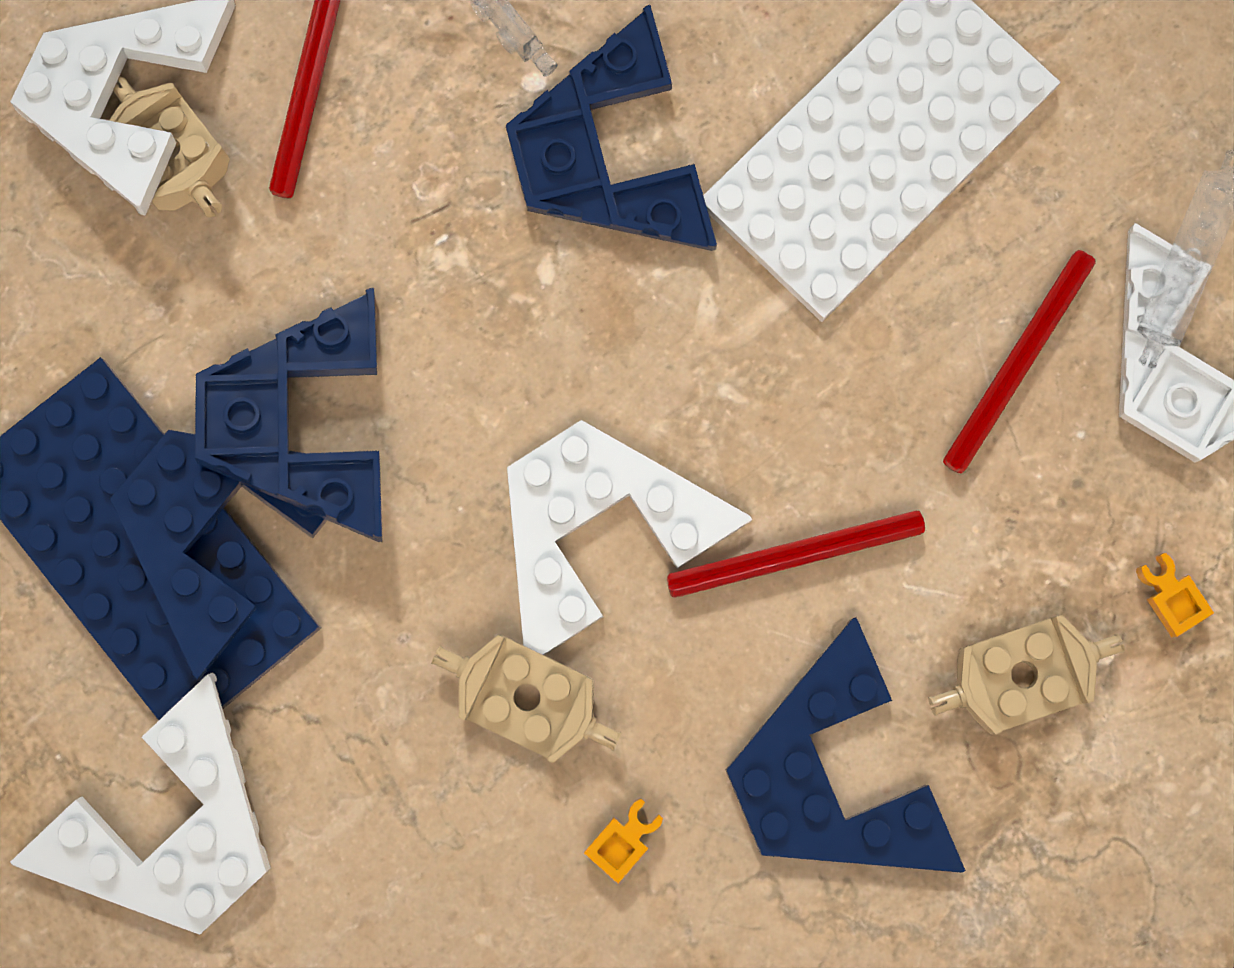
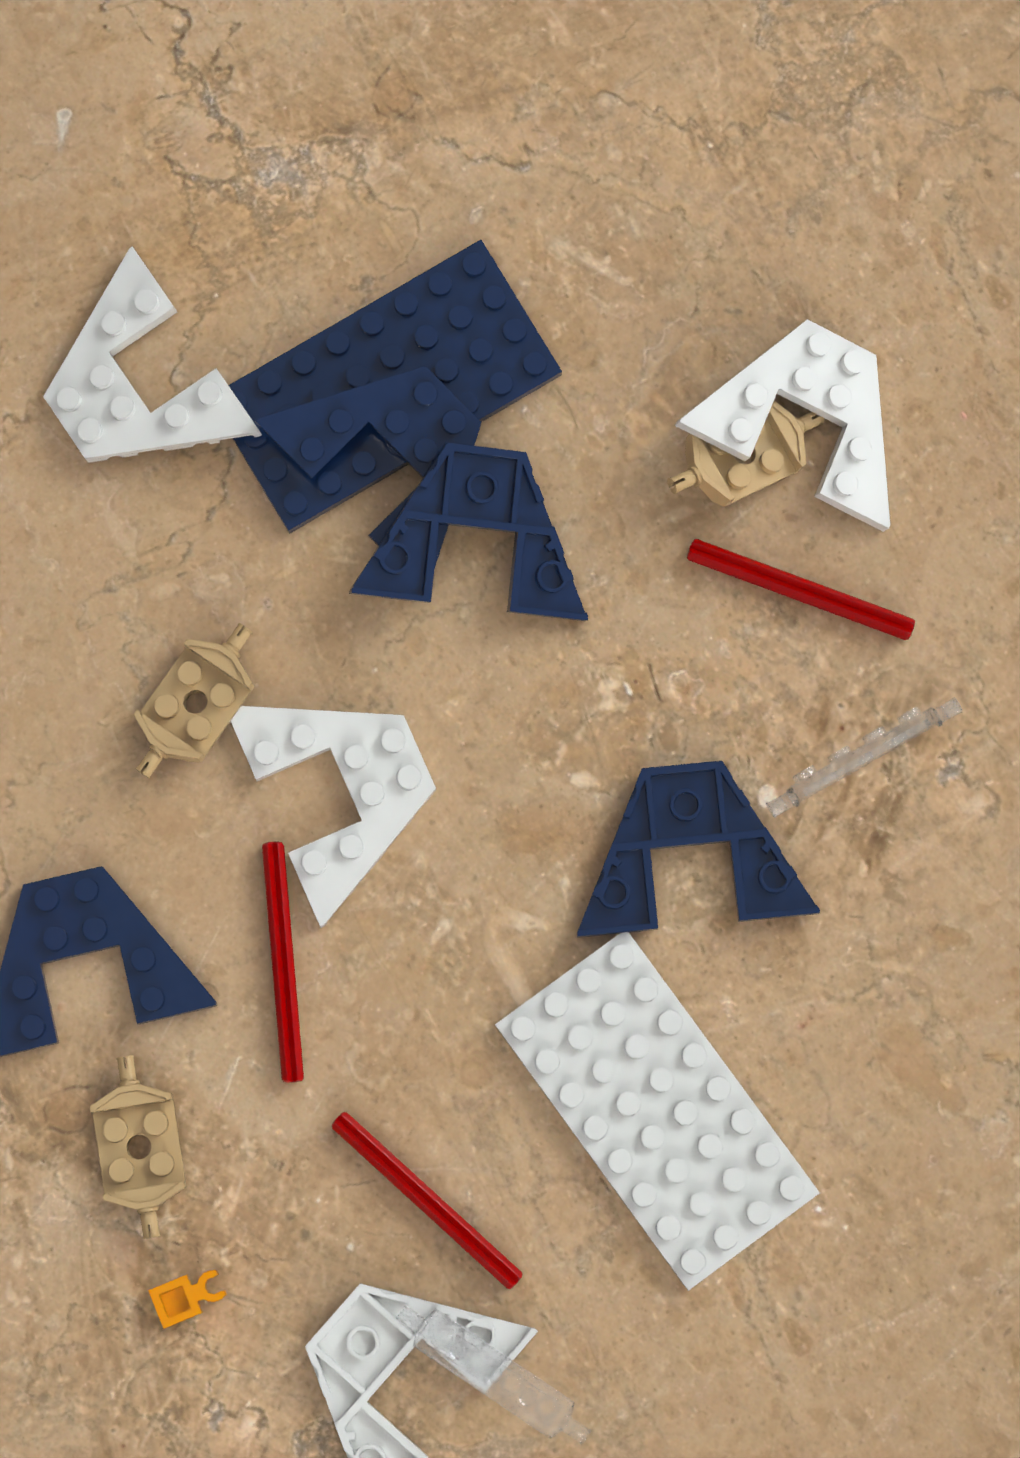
camera: 100 degrees right, 0 degrees up
(619, 846) = (53, 763): light orange plate -> none

